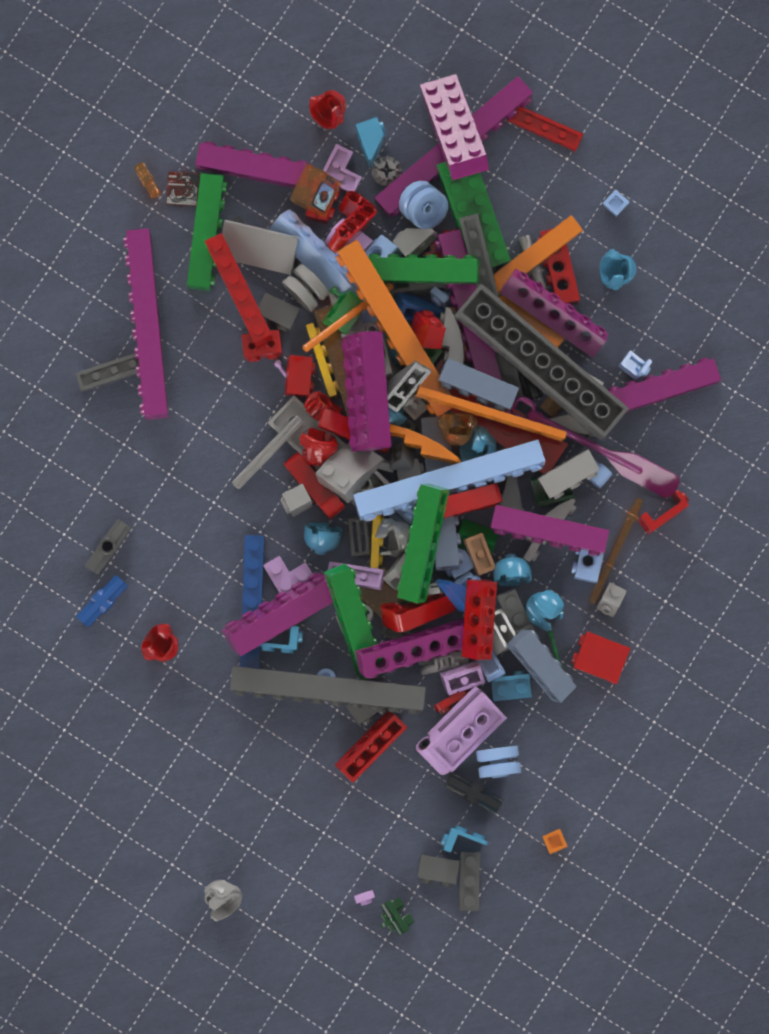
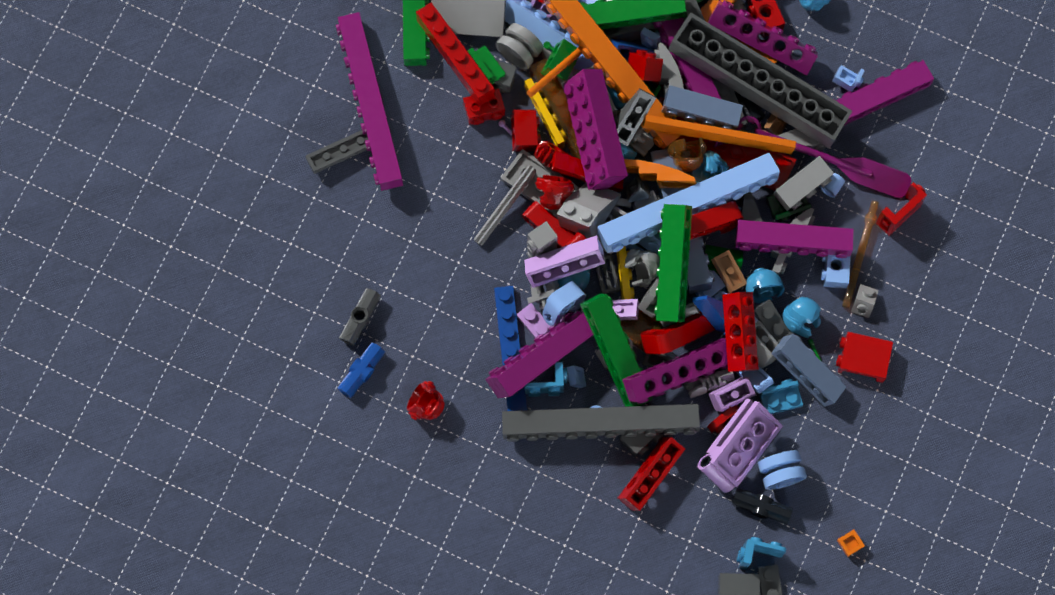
camera: 10 degrees left, 10 degrees down
(269, 303) = (487, 64): none -> green panel
(287, 550) = (540, 295): none -> light grey hips
(308, 565) = (562, 301): none -> light blue piece
(312, 637) = (576, 376): none -> light blue plate
(315, 525) = (564, 261): none -> lavender brick

